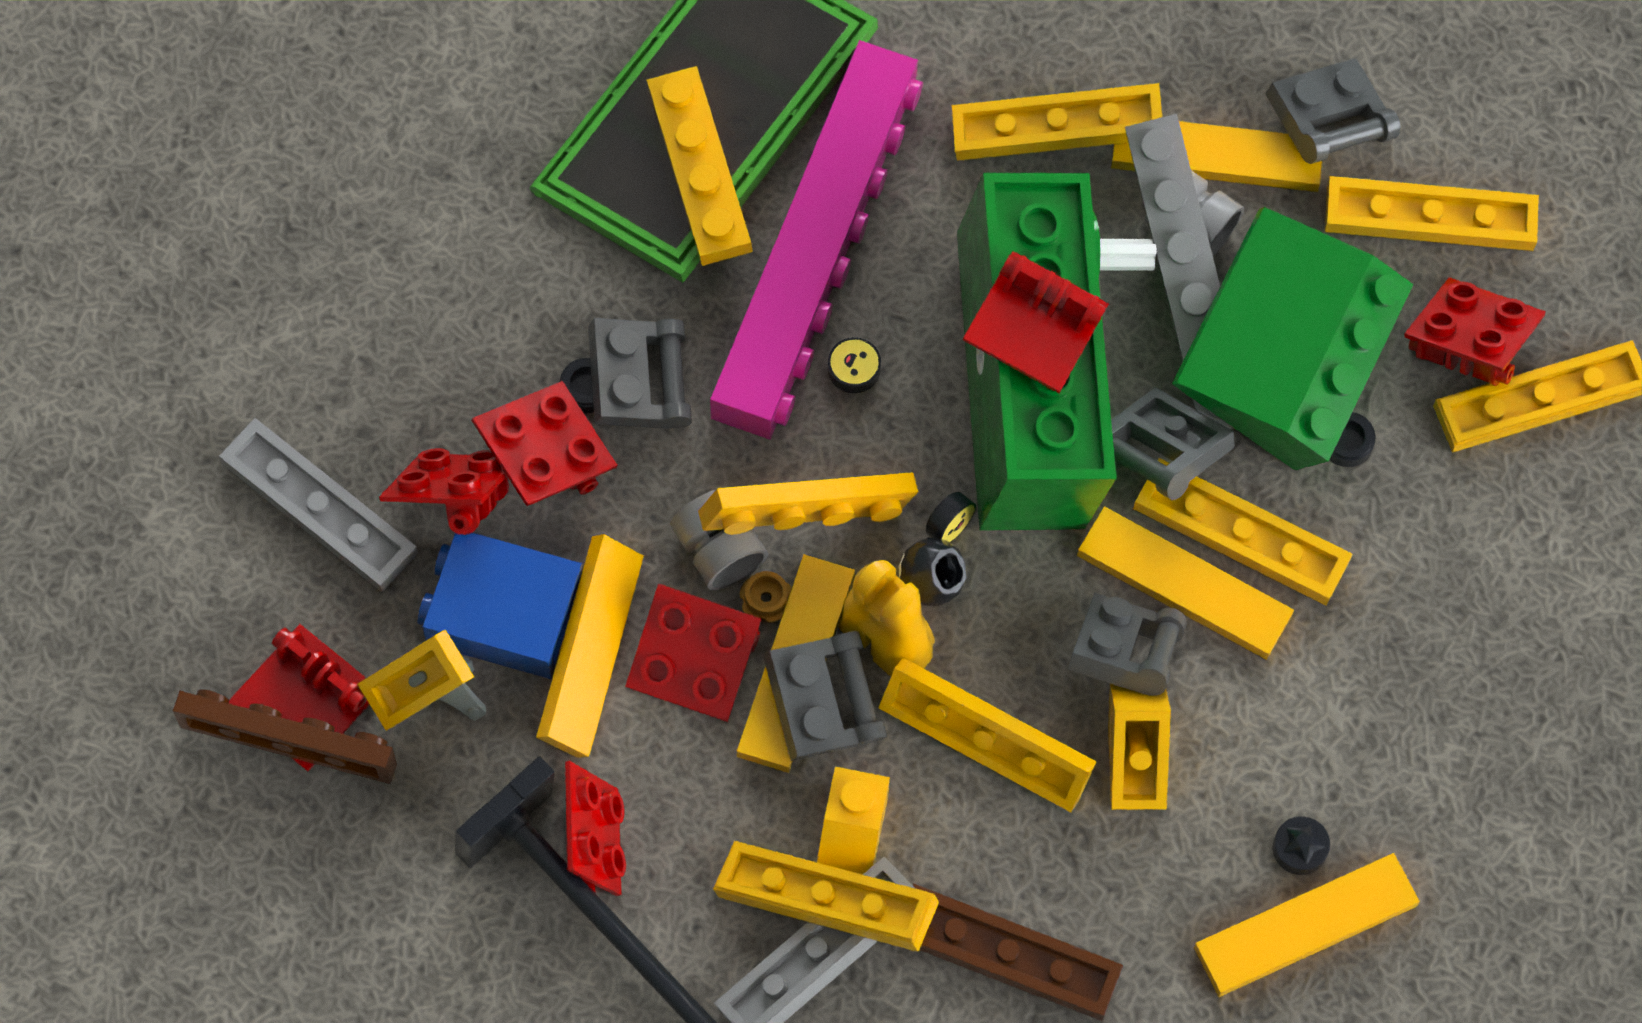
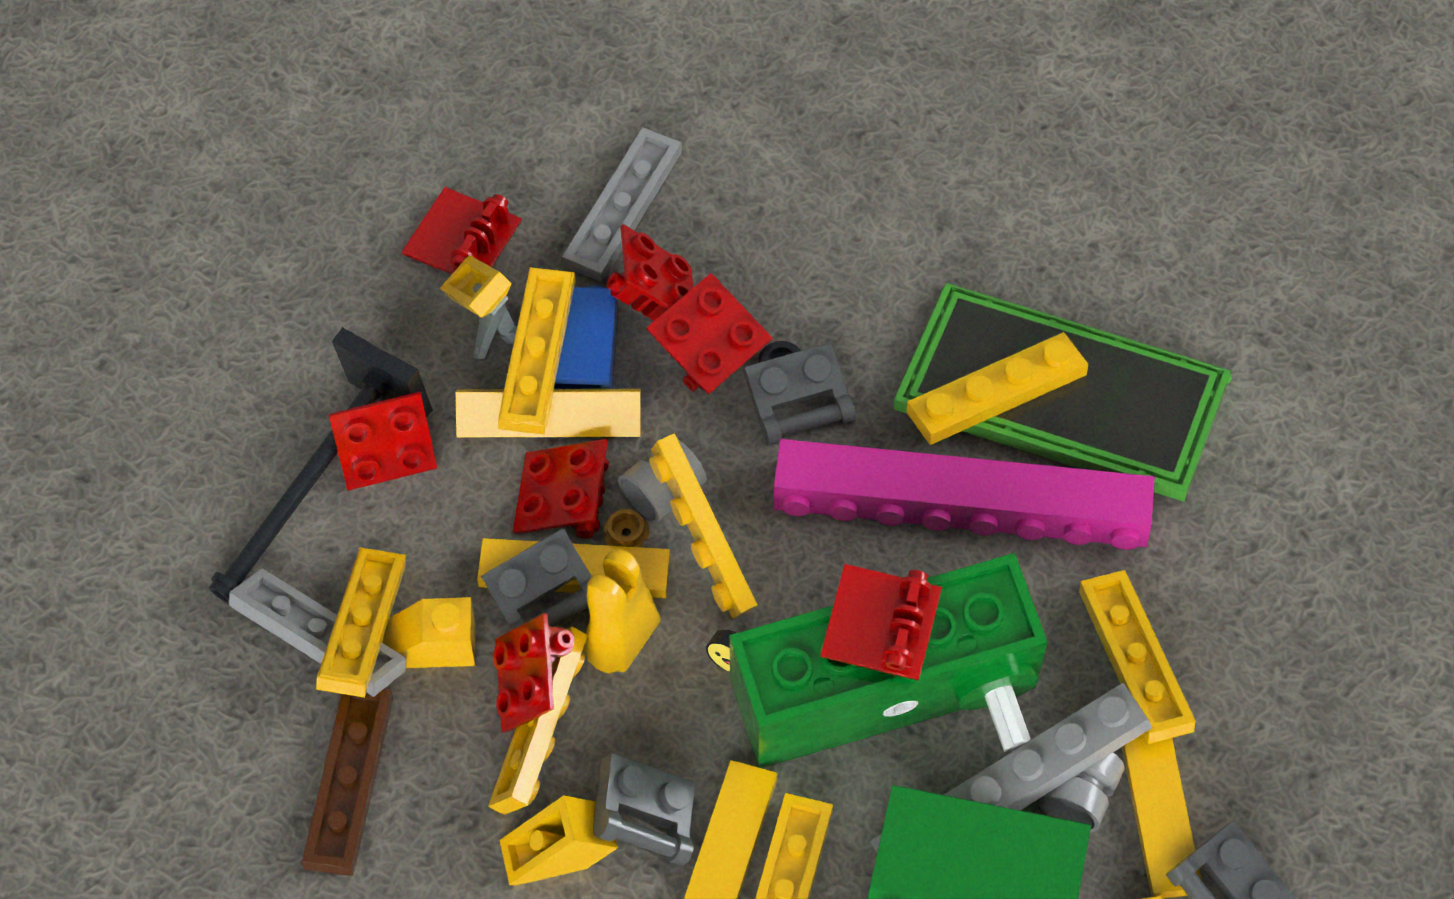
camera: 80 degrees right, 10 degrees down
(266, 730) = (417, 235): reddish brown plate -> none
(522, 630) = (536, 351): none -> yellow tile
(854, 365) = (858, 549): light yellow tile -> none
(934, 569) = (674, 636): black piece -> none
(941, 726) = (525, 670): none -> red hinge
(1176, 433) = (858, 810): dark grey plate -> none

